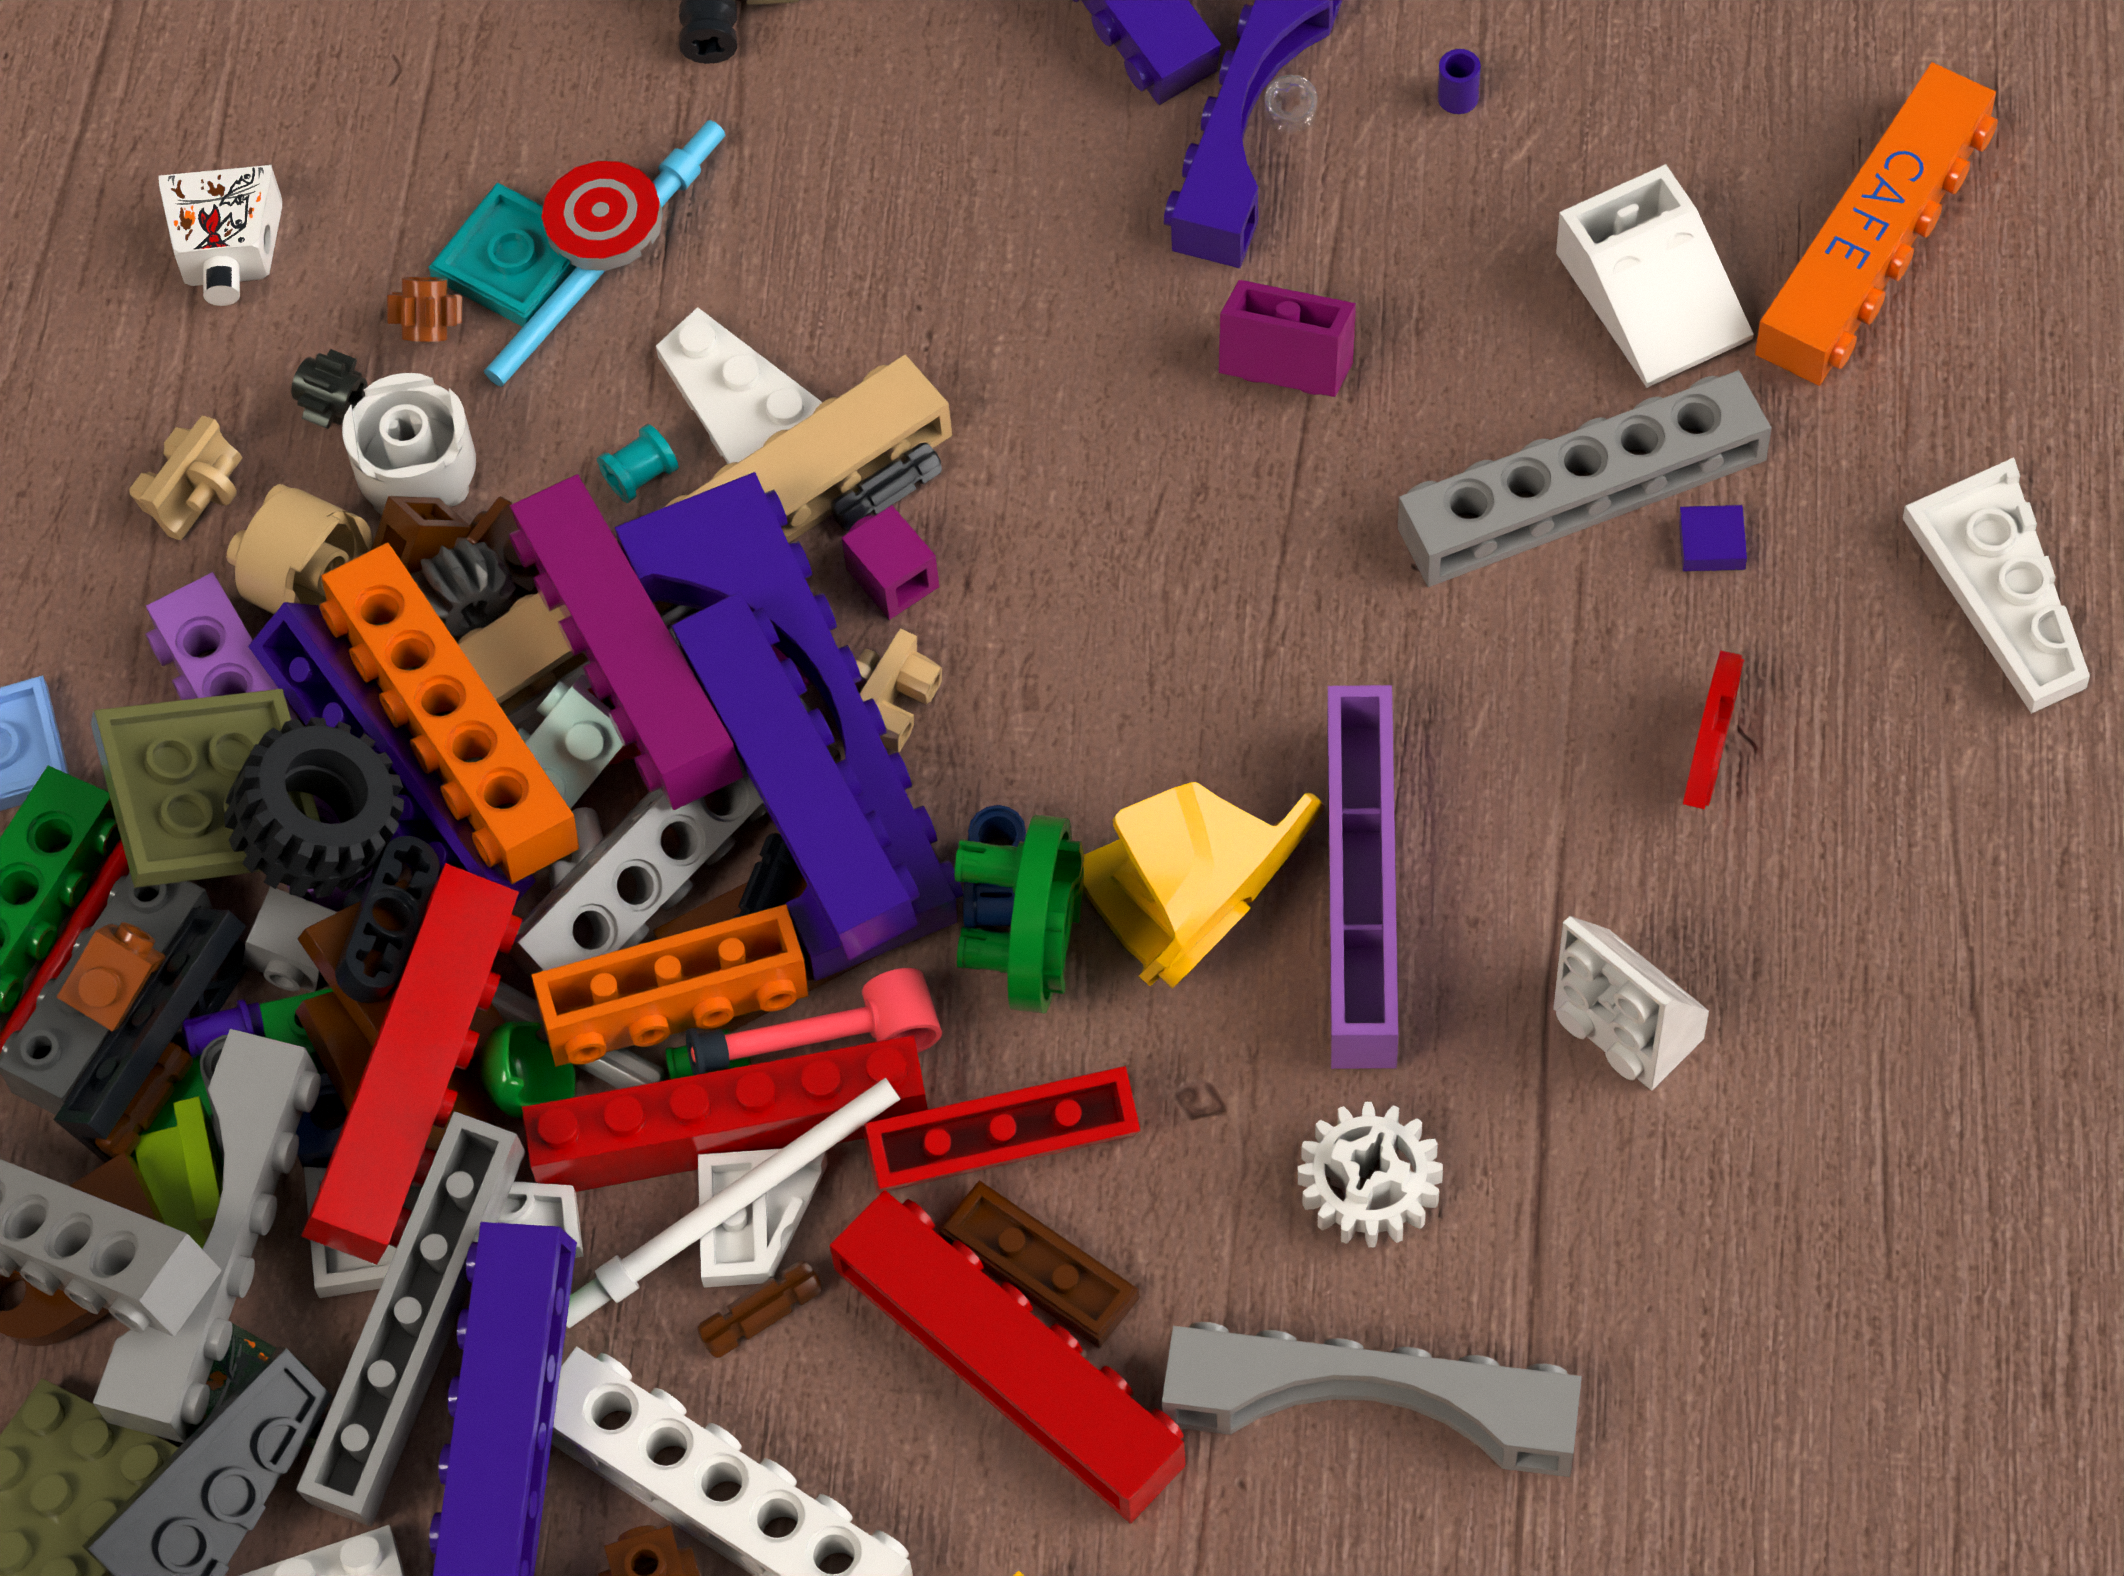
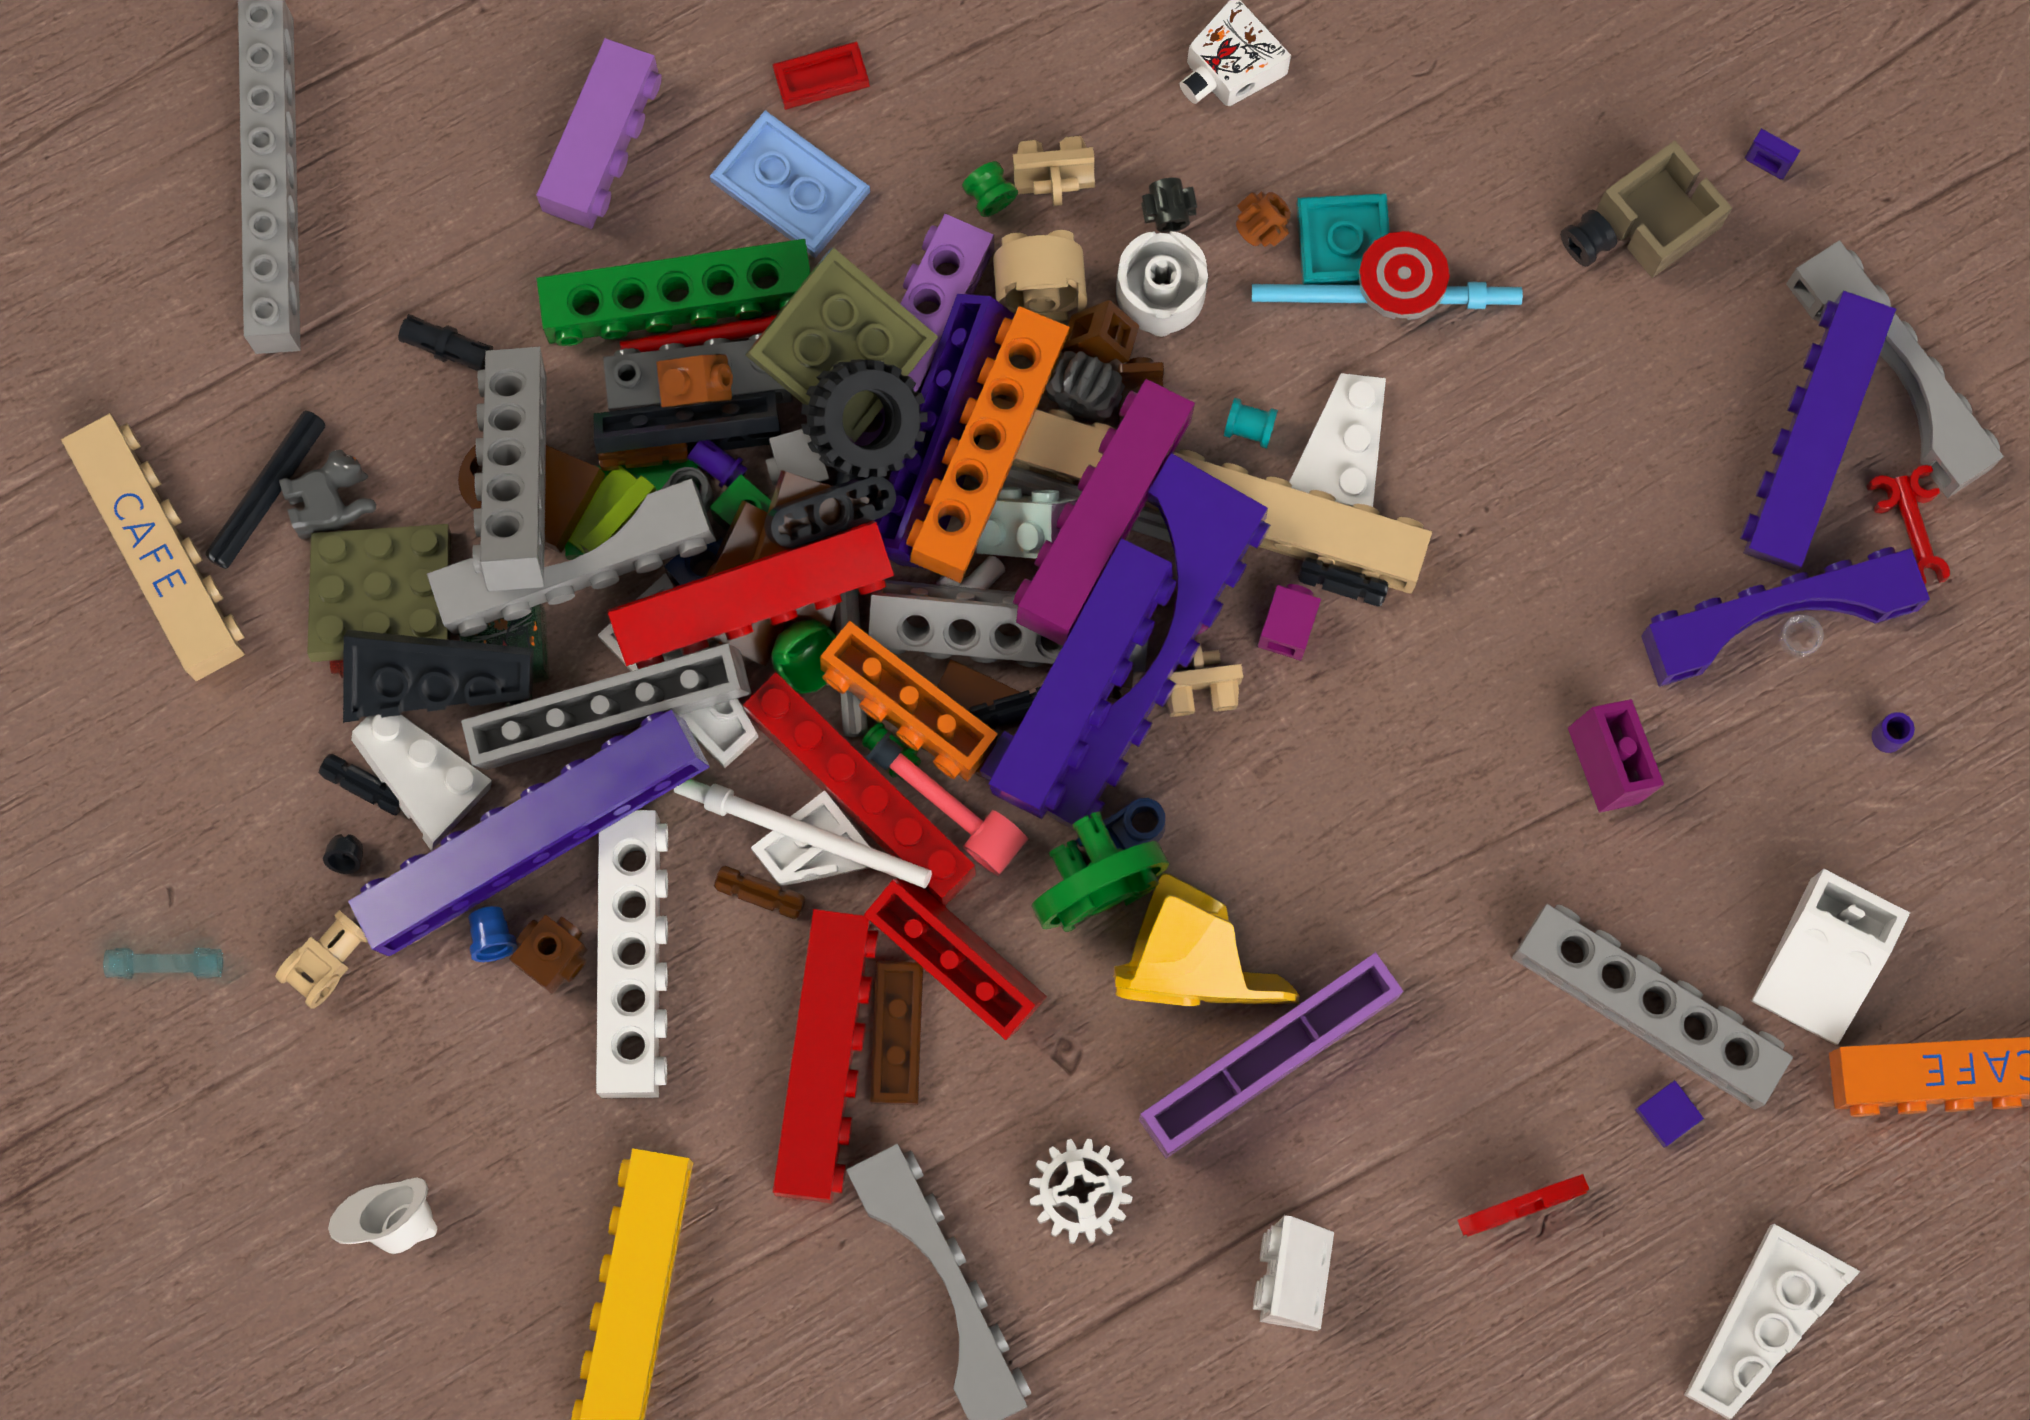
camera: 50 degrees right, 15 degrees up
(155, 553) = (990, 189): none -> green wheel

